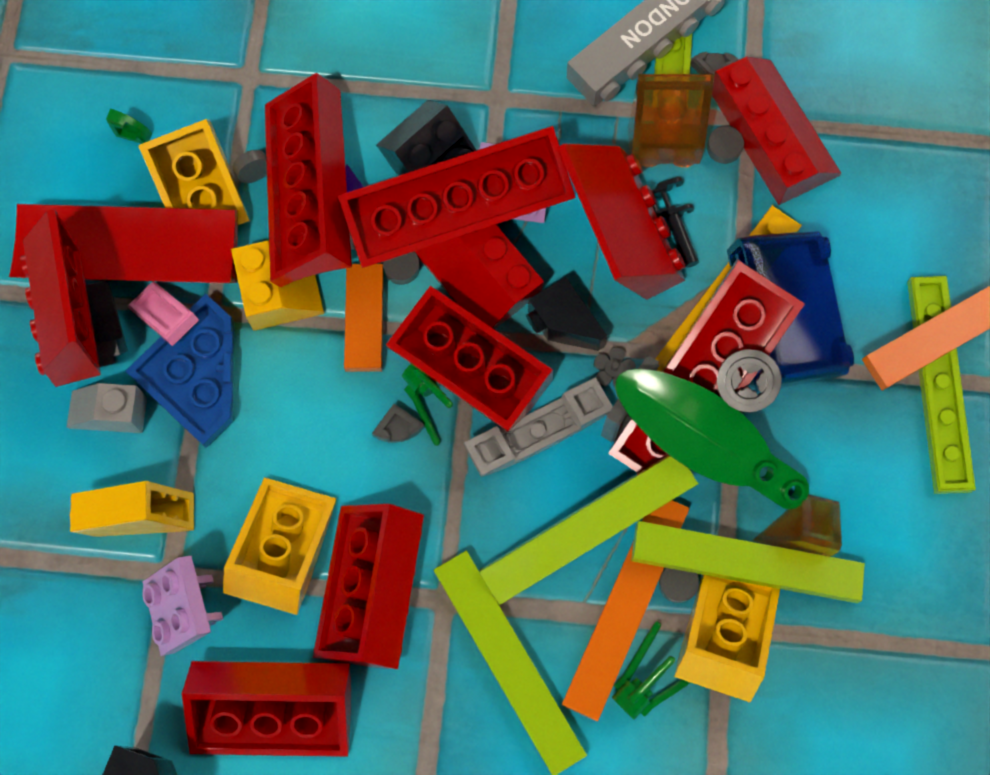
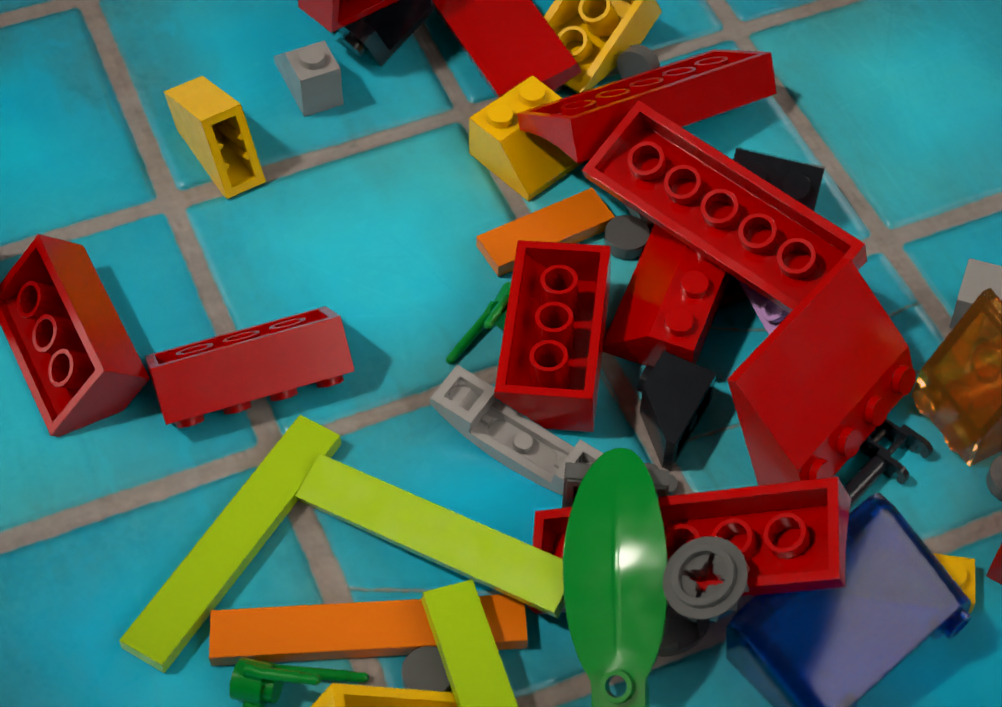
camera: 60 degrees right, 20 degrees down
(163, 313) = (433, 66): bright pink tile -> none
(178, 605) = (144, 191): lavender plate -> none
(194, 374) = (391, 117): blue plate -> none
(278, 546) = (245, 265): yellow slope -> none
(397, 426) = (444, 314): dark grey tile -> none

